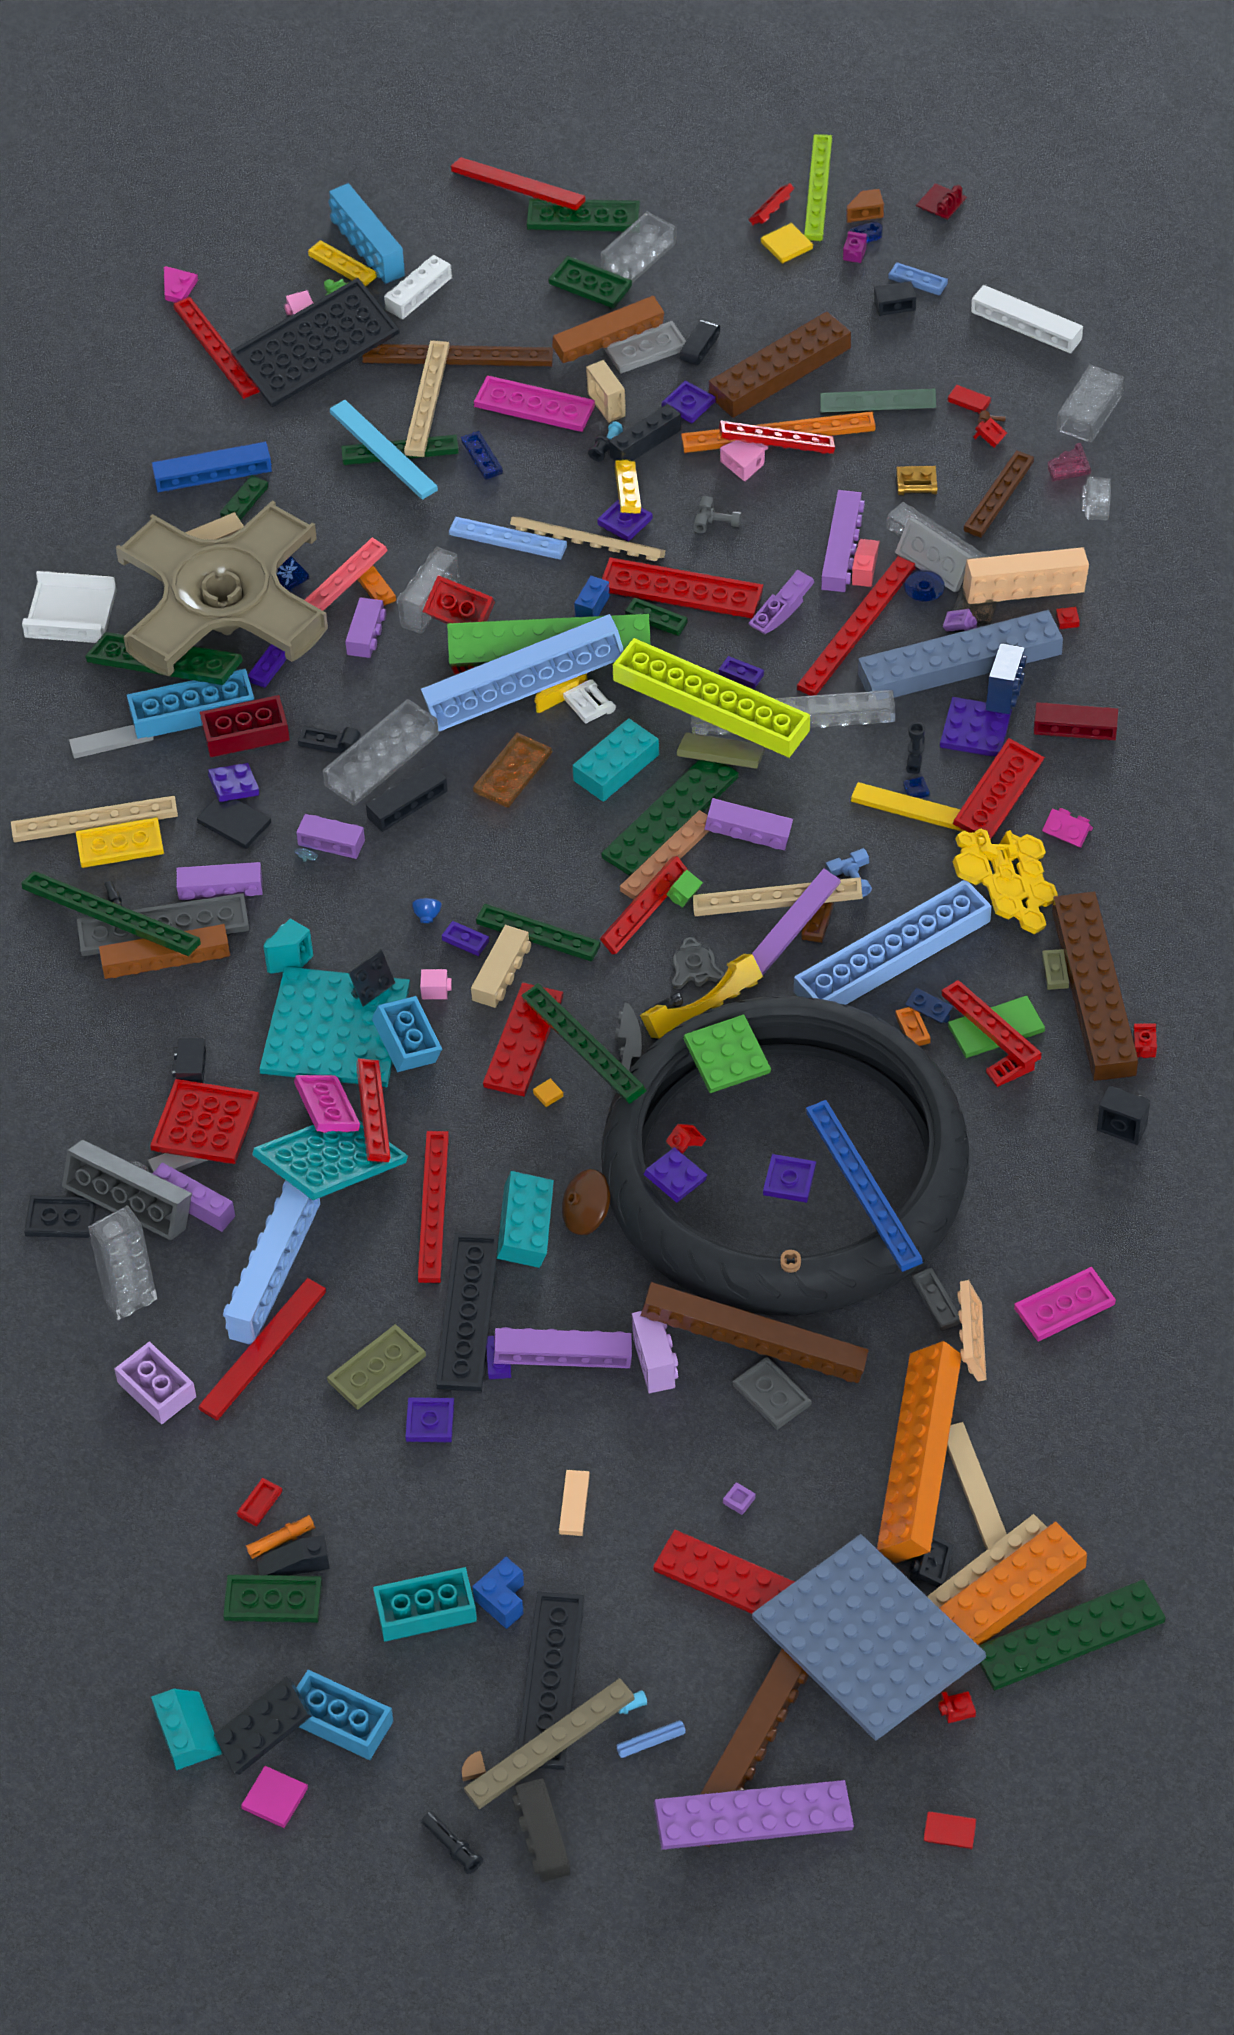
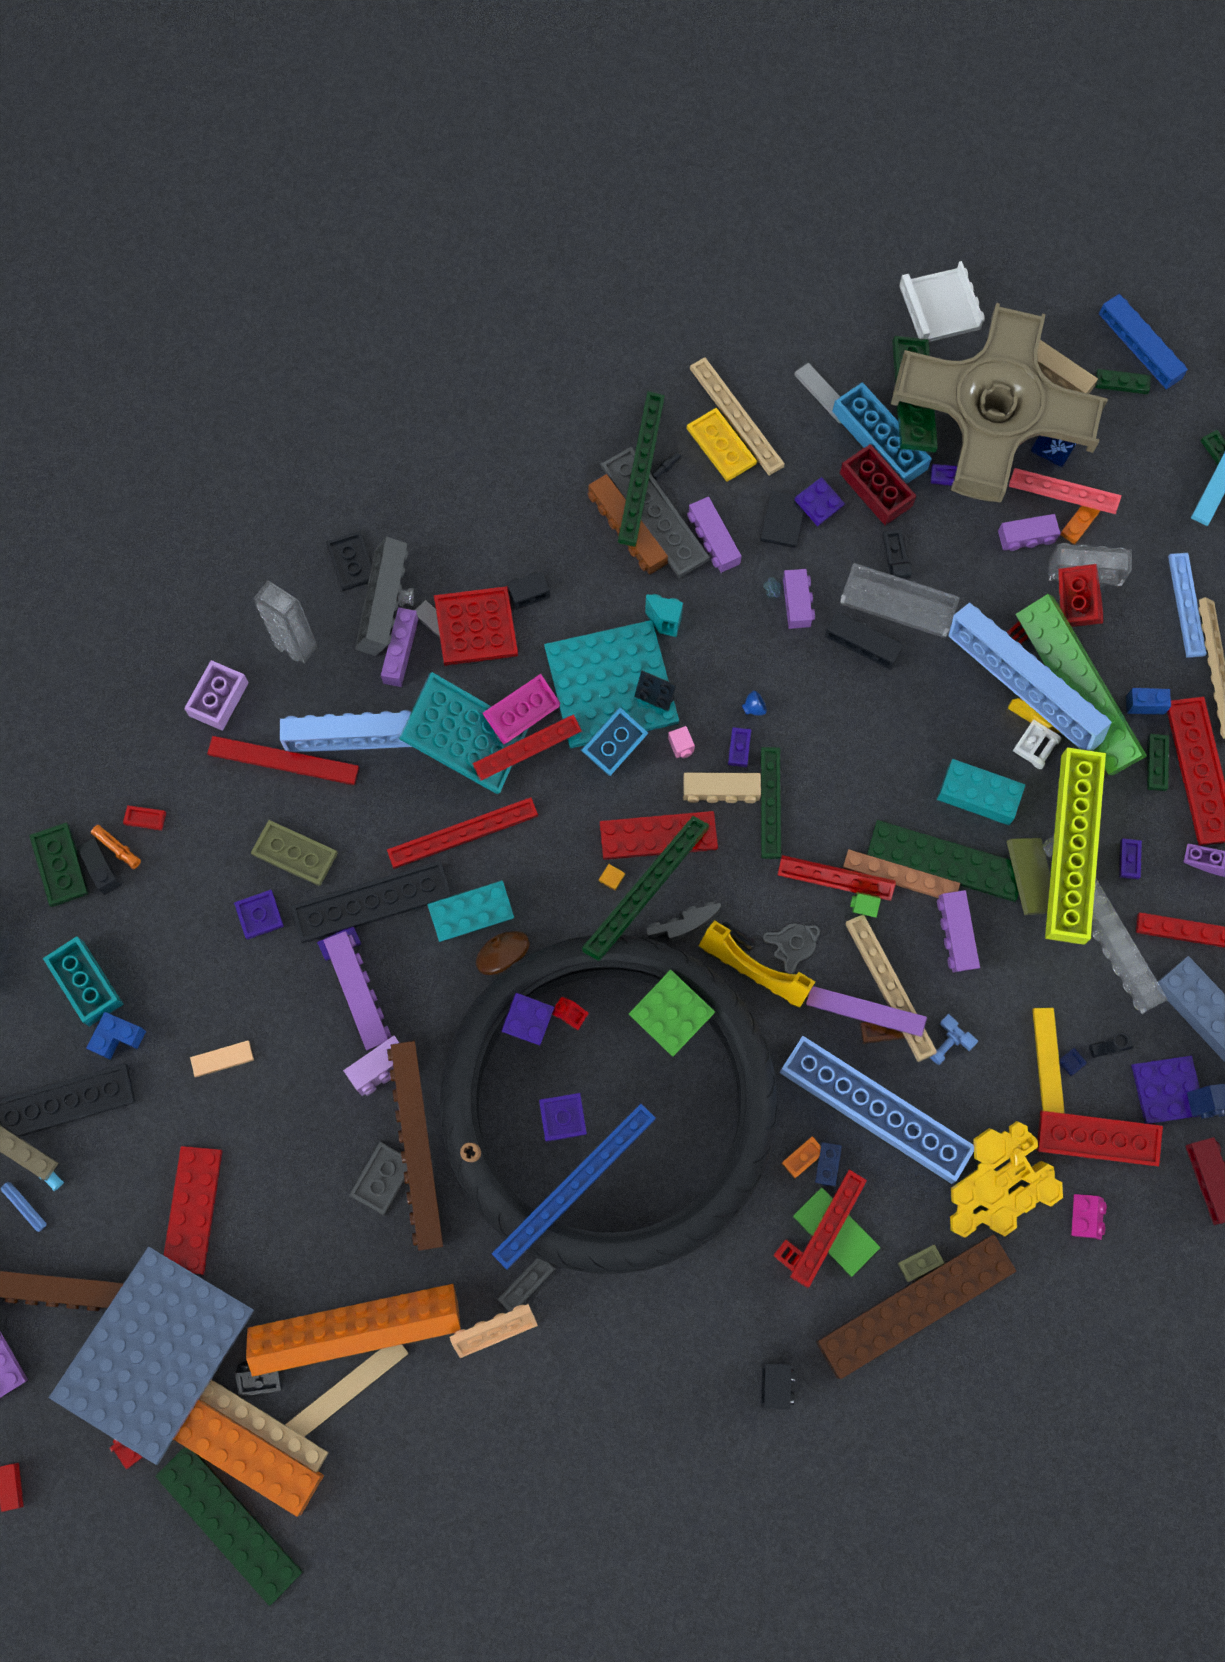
camera: 65 degrees right, 20 degrees up
(512, 770) = (933, 712): clear orange plate -> none
(739, 1498) = (267, 1191): medium lavender plate -> none
(1064, 1304) = (560, 1401): dark pink plate -> none
(1145, 1040) = (881, 1372): red brick -> none

